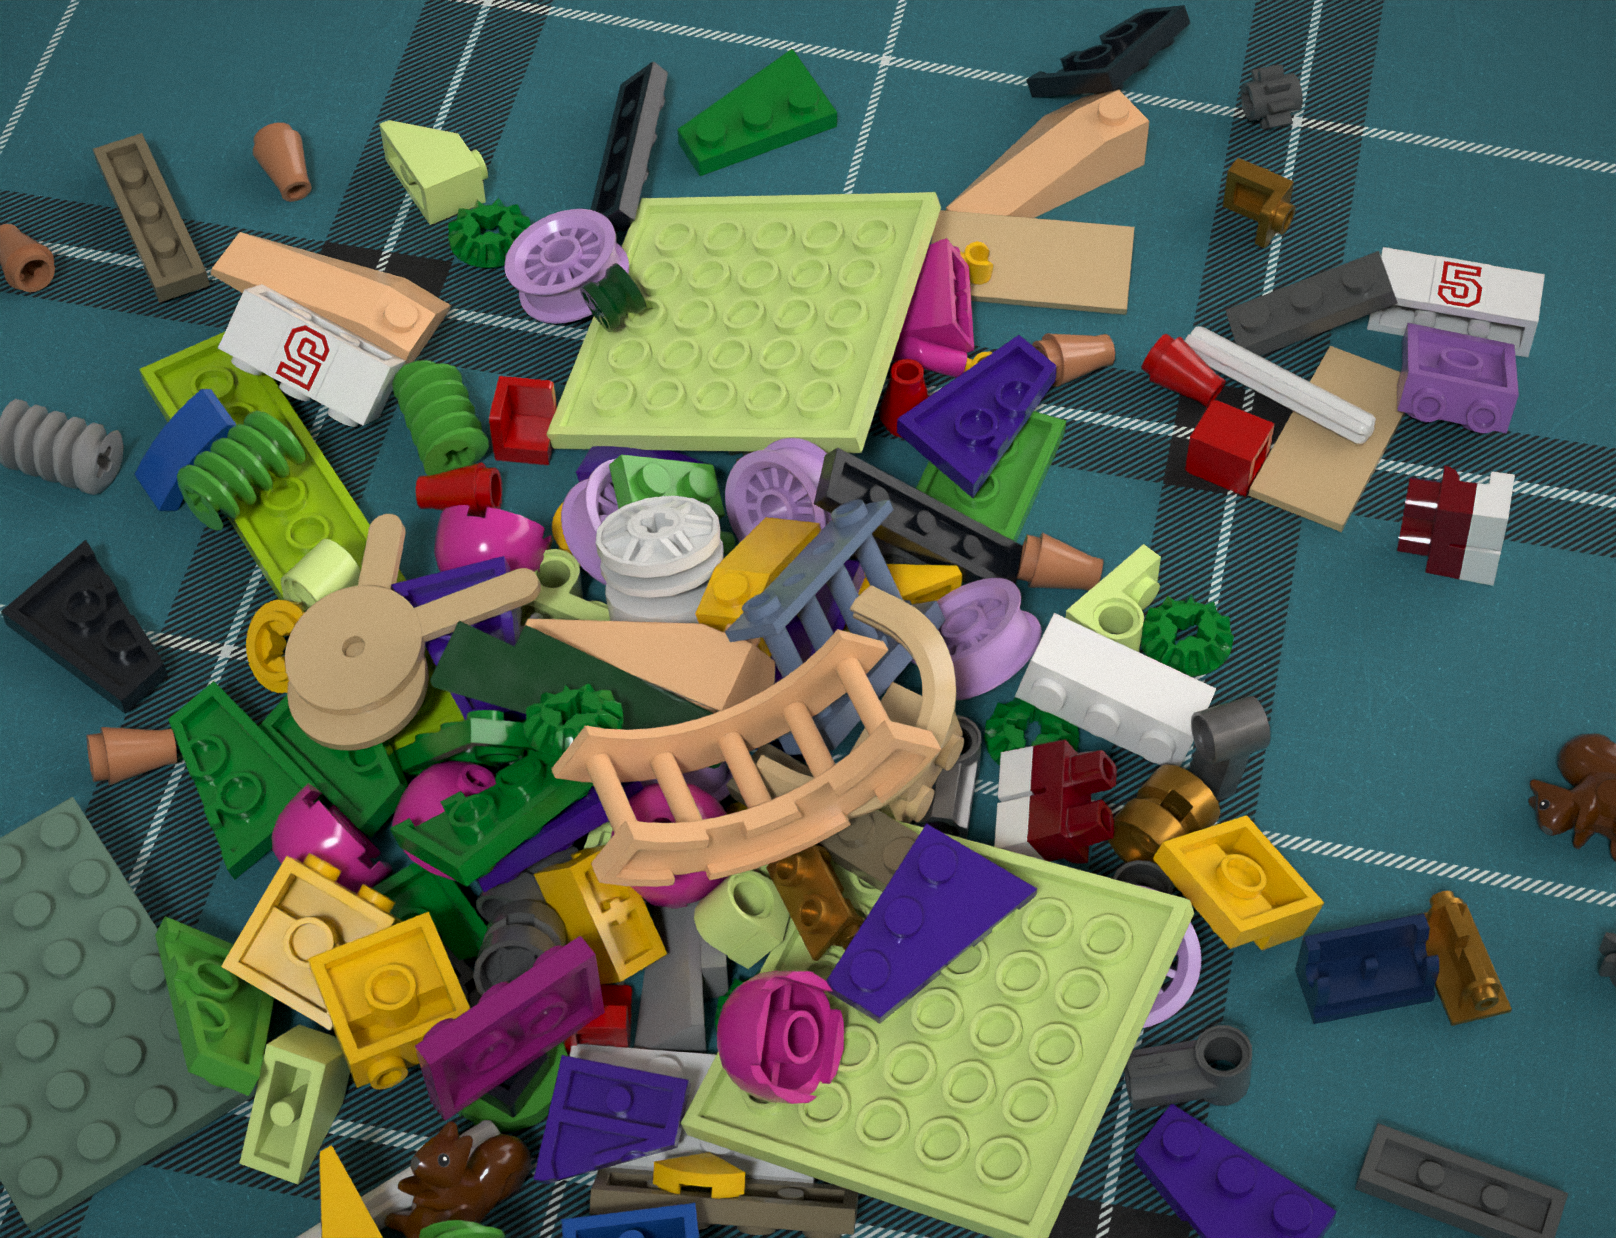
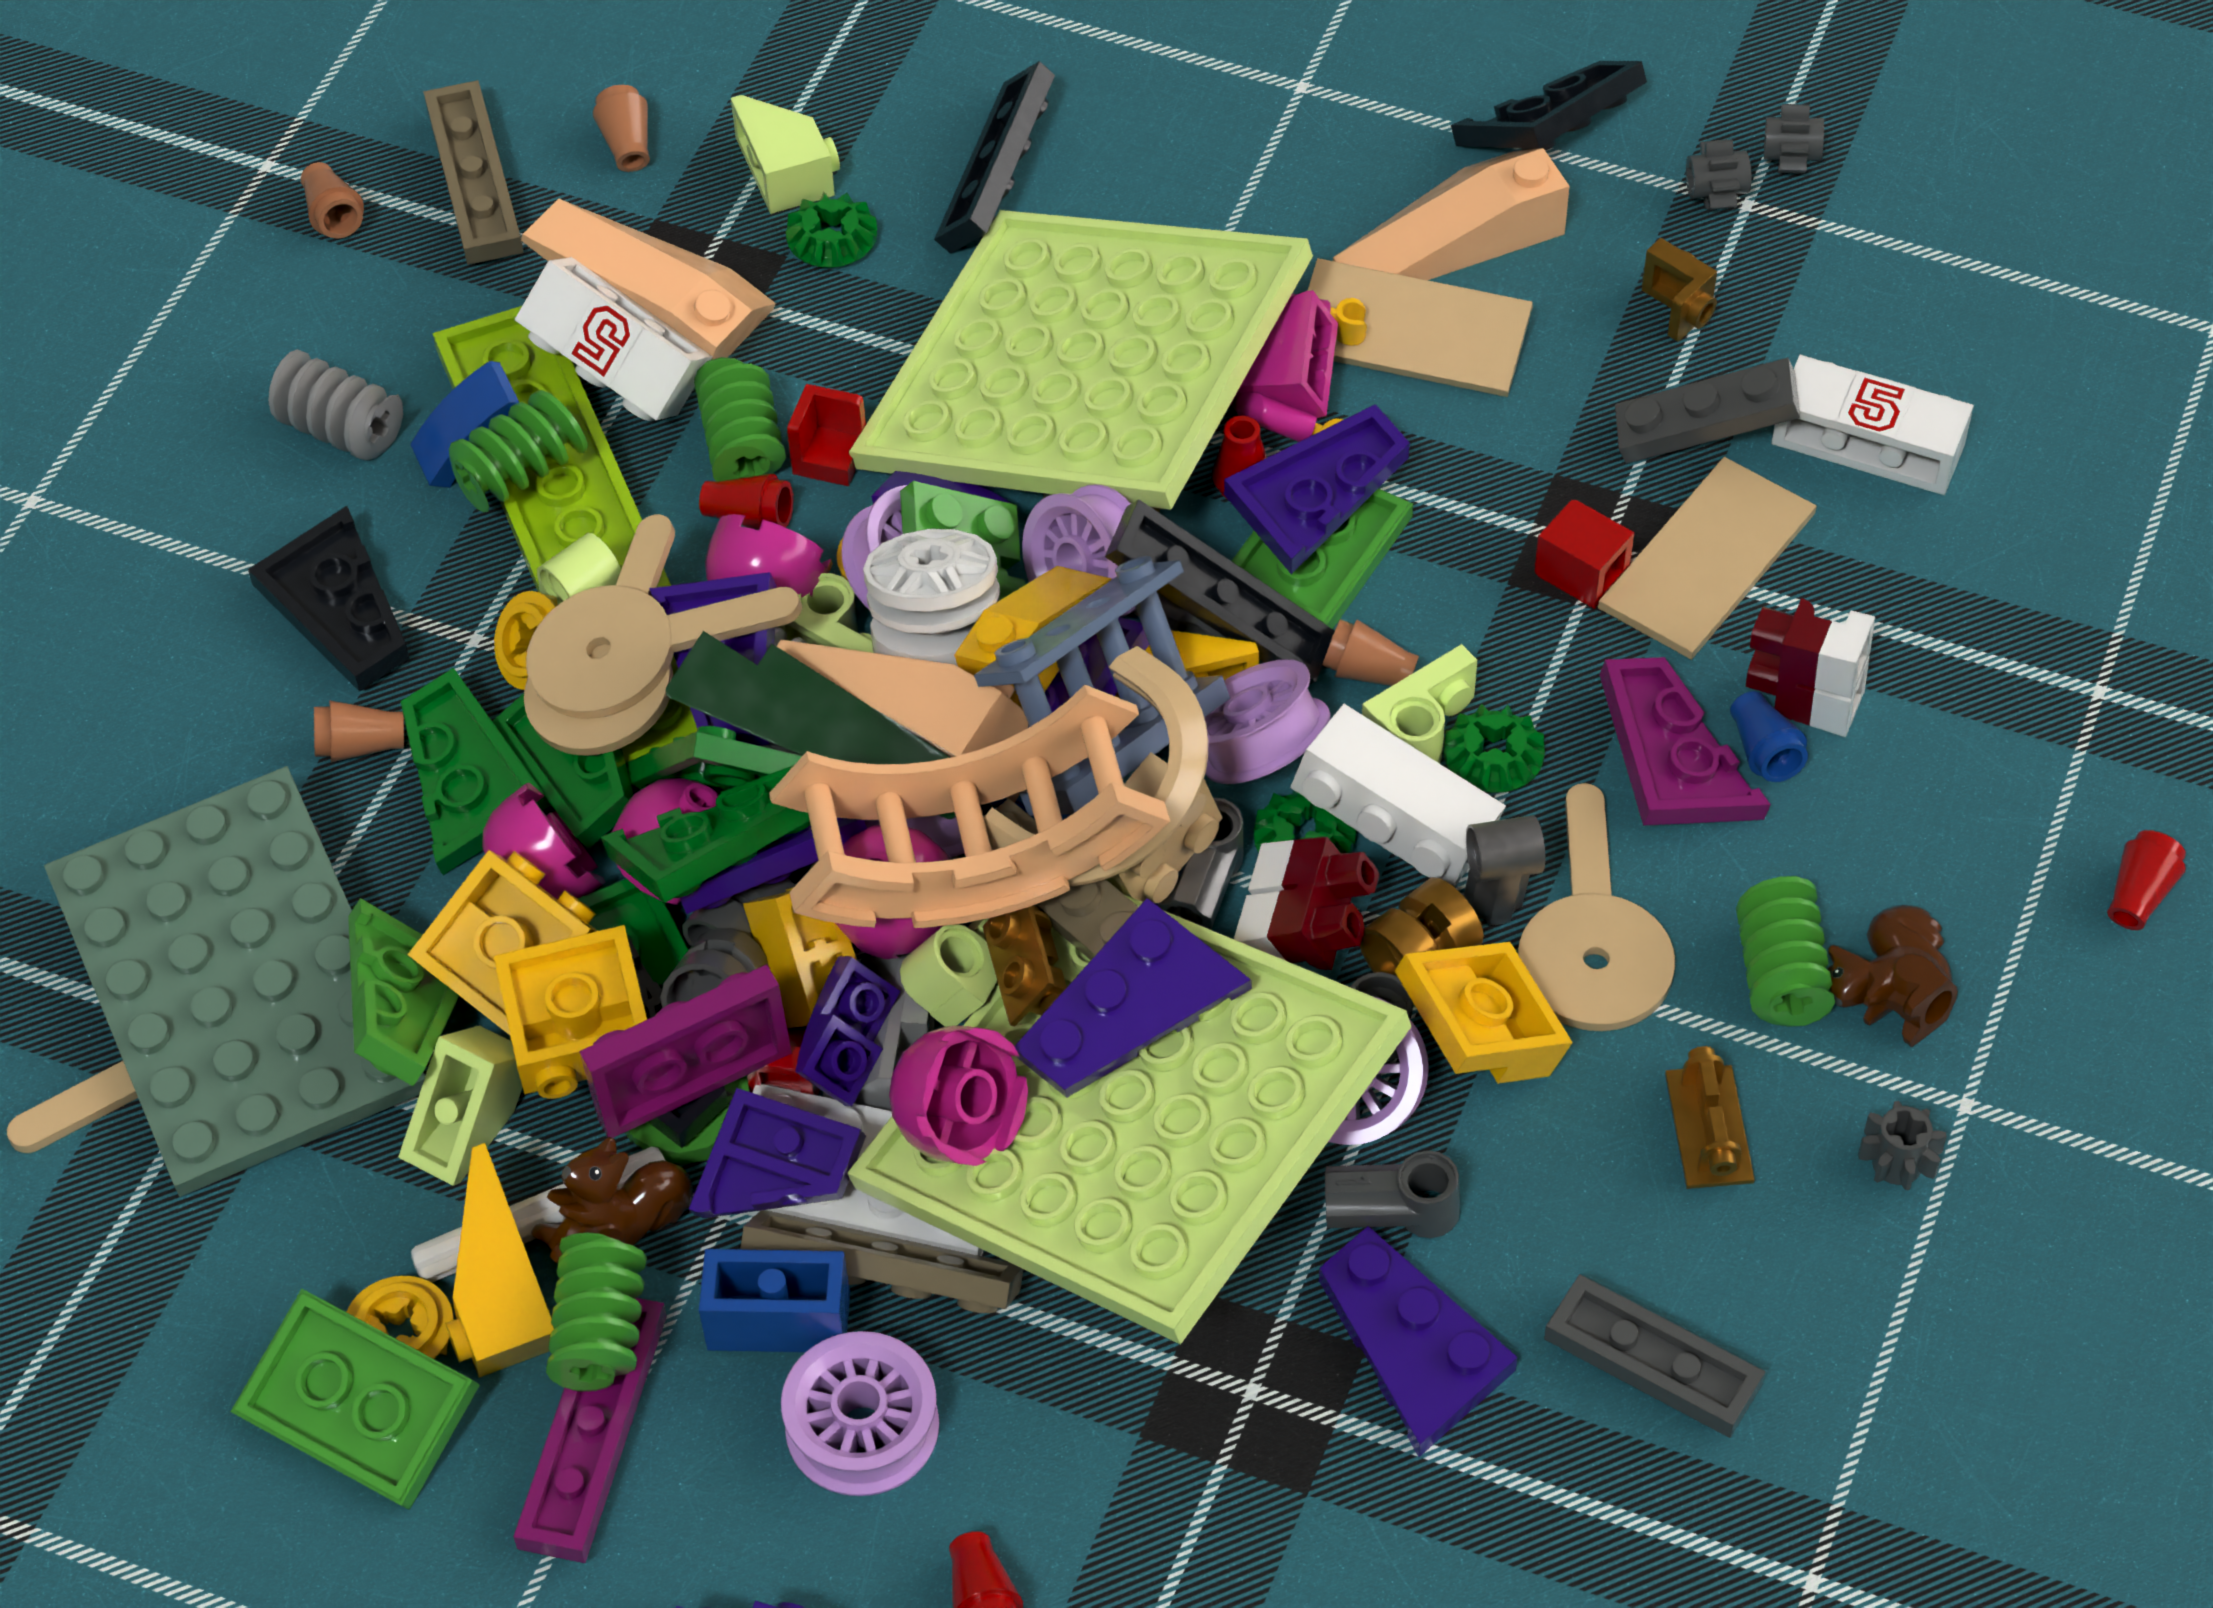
camera: 10 degrees right, 0 degrees up
(558, 258) = (904, 274): lavender wheel -> none
(579, 707) = (785, 743): green gear -> none
(613, 297) = (943, 314): dark green wheel -> none
(647, 981) = (842, 1029): none -> dark purple slope
(699, 1170) = (880, 1233): yellow tile -> none
(758, 116) = (1147, 134): green wing -> none
(1076, 354) = (1437, 433): nougat cone -> none
(1182, 370) = (1550, 463): red cone -> none
(1282, 386) = (1656, 493): white axle -> none
(1316, 786) = (1600, 924): none -> tan piece
(1329, 58) = (1793, 138): none -> dark grey gear
(1344, 620) = (1669, 752): none -> magenta wing
(1367, 968) = (1607, 1117): dark blue hinge -> none
(1432, 598) = (1769, 740): none -> blue cone
(1457, 379) = (1852, 508): medium lavender plate -> none
(1493, 792) = (1785, 952): none -> bright green piece

